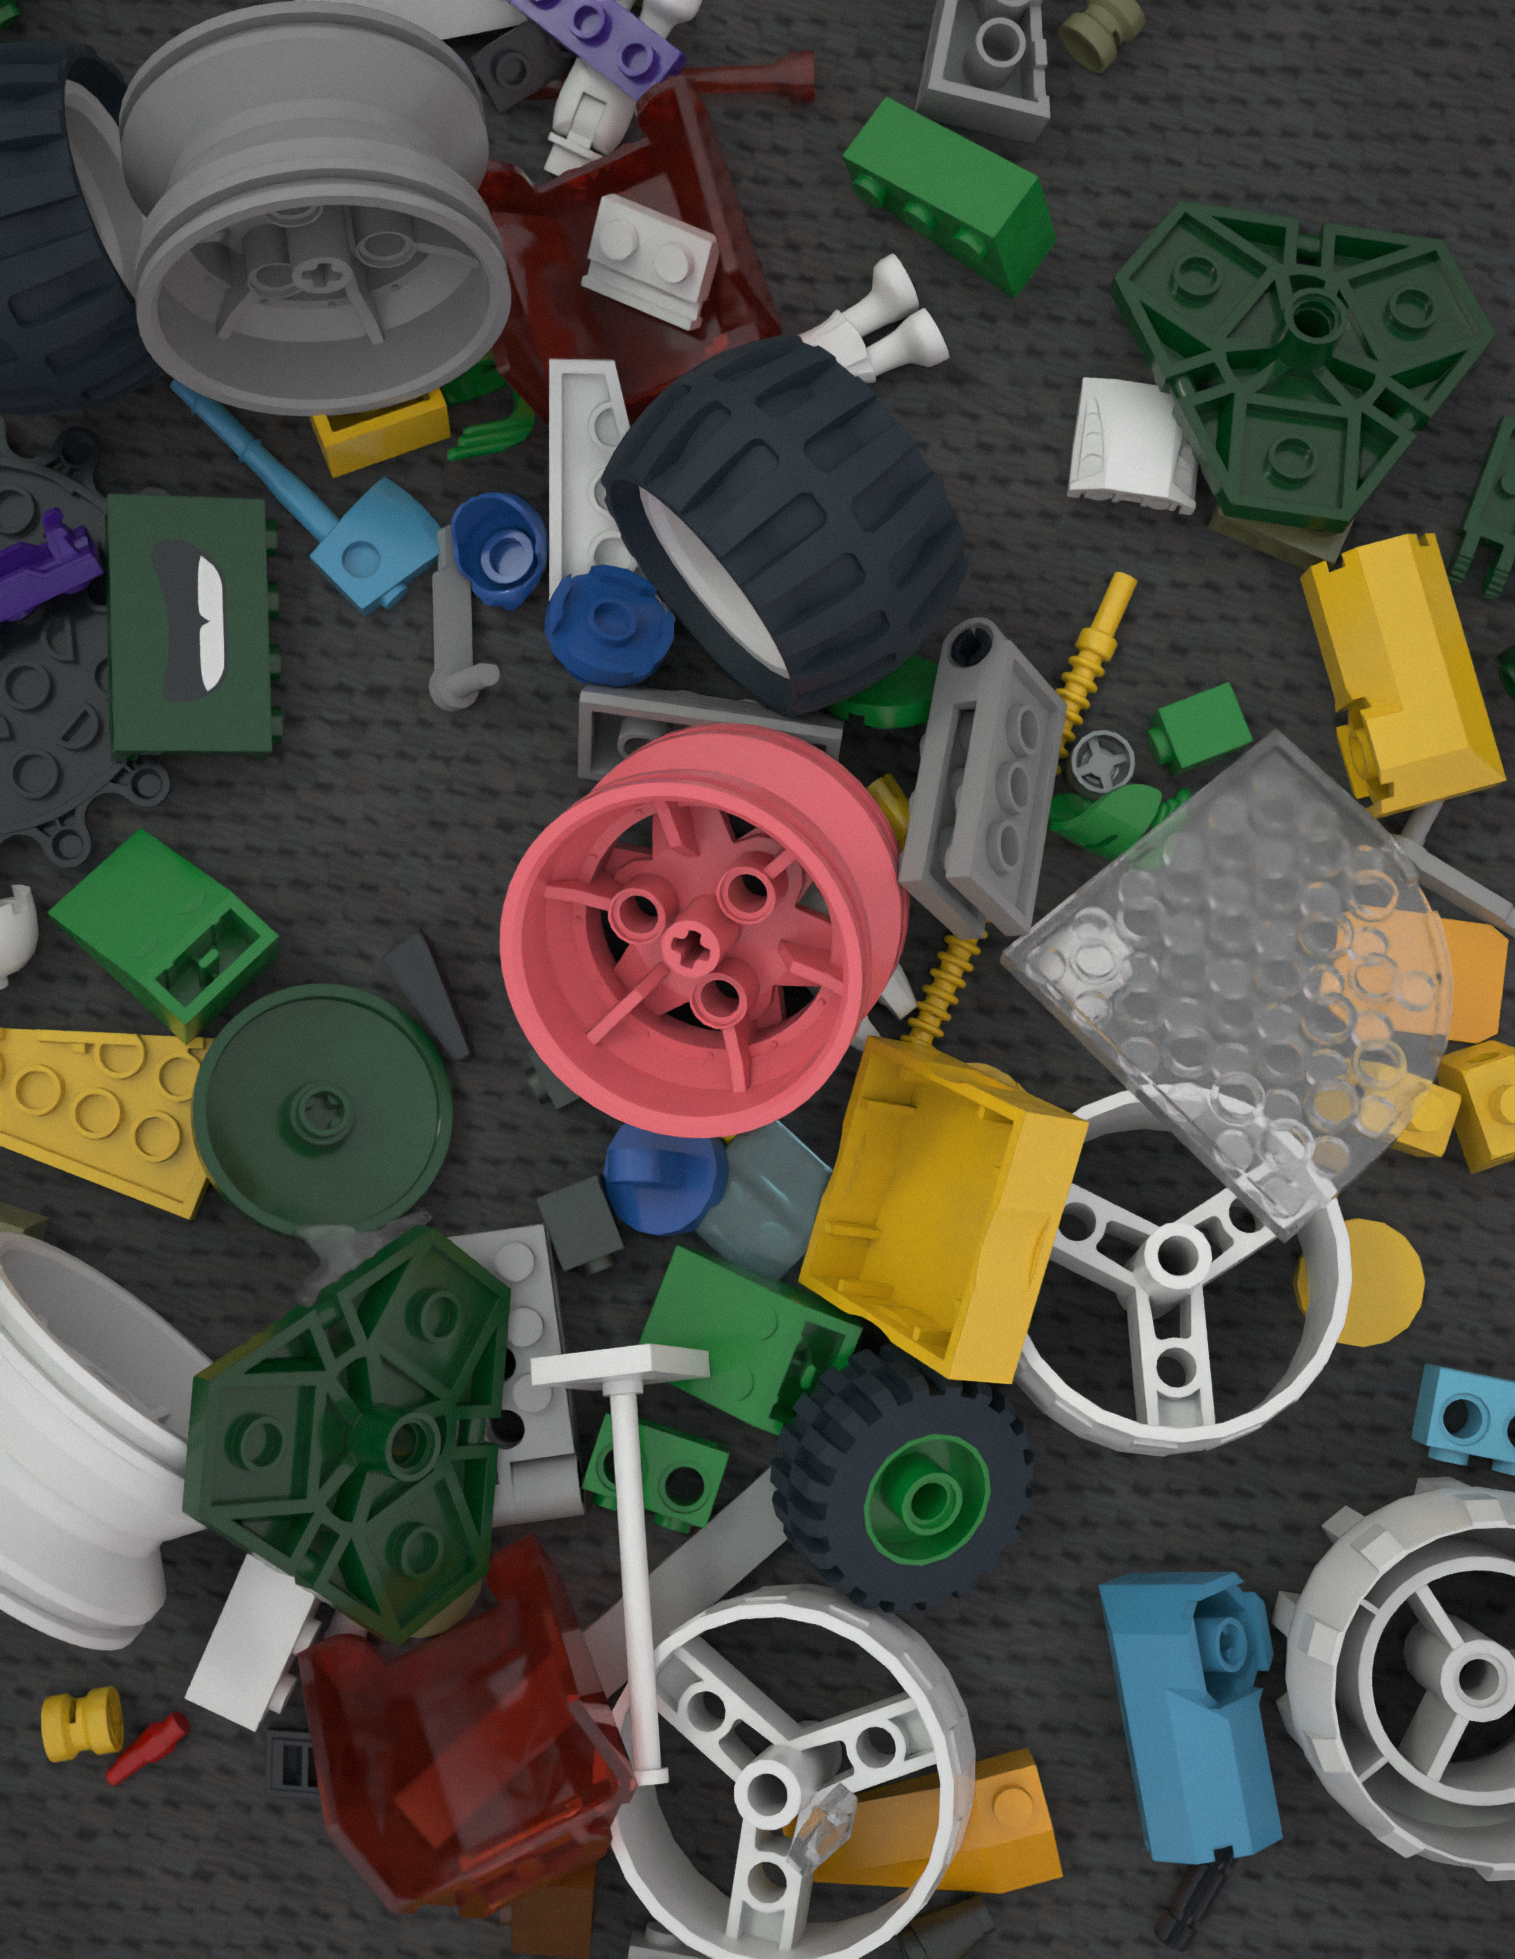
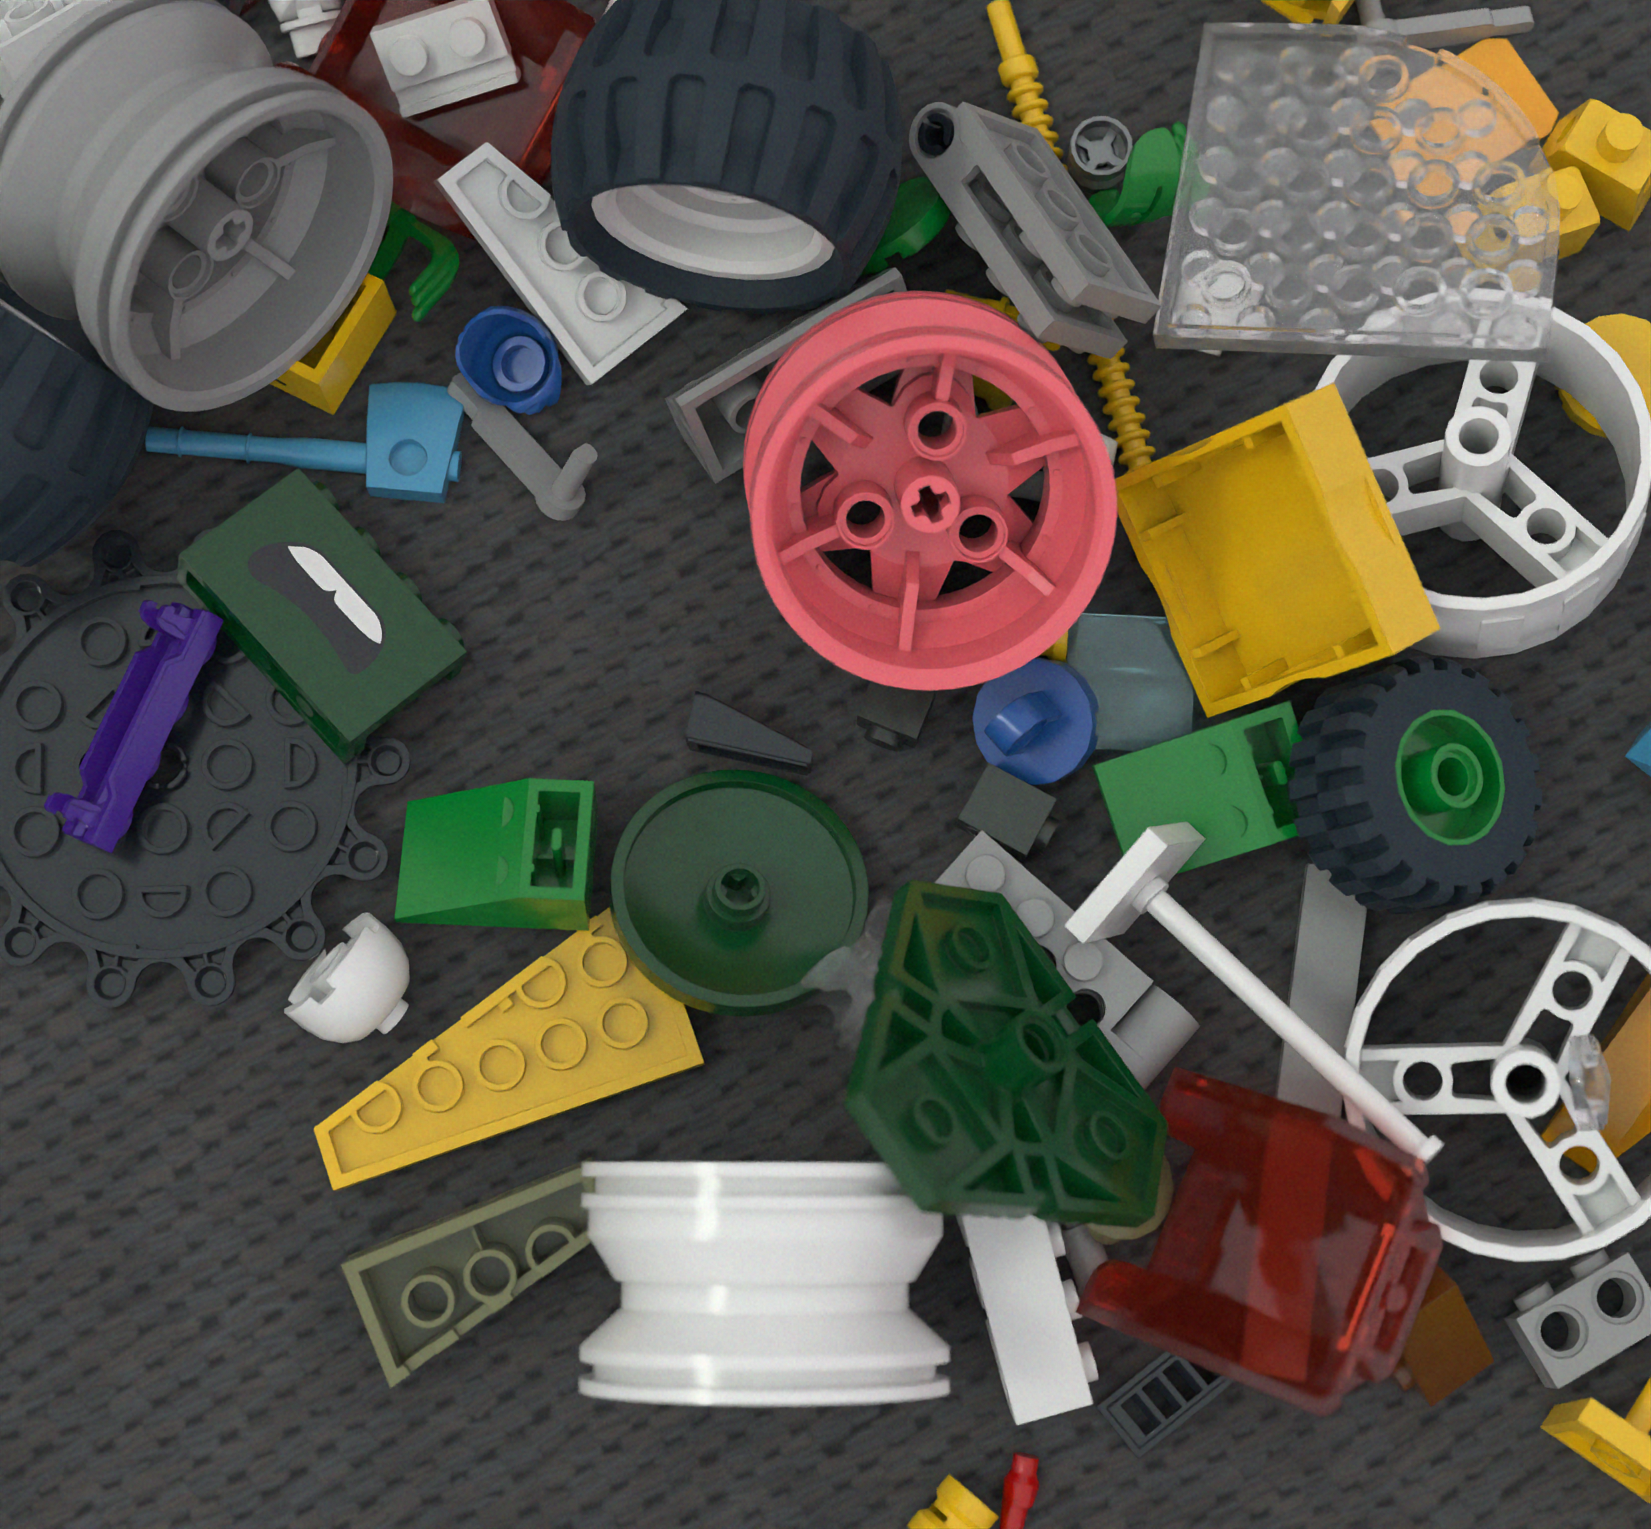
camera: 40 degrees left, 5 degrees down
(608, 626) = (647, 348): blue tile -> none
(661, 1453) = (1224, 923): green brick -> none
(1198, 730) = (1149, 69): green brick -> none

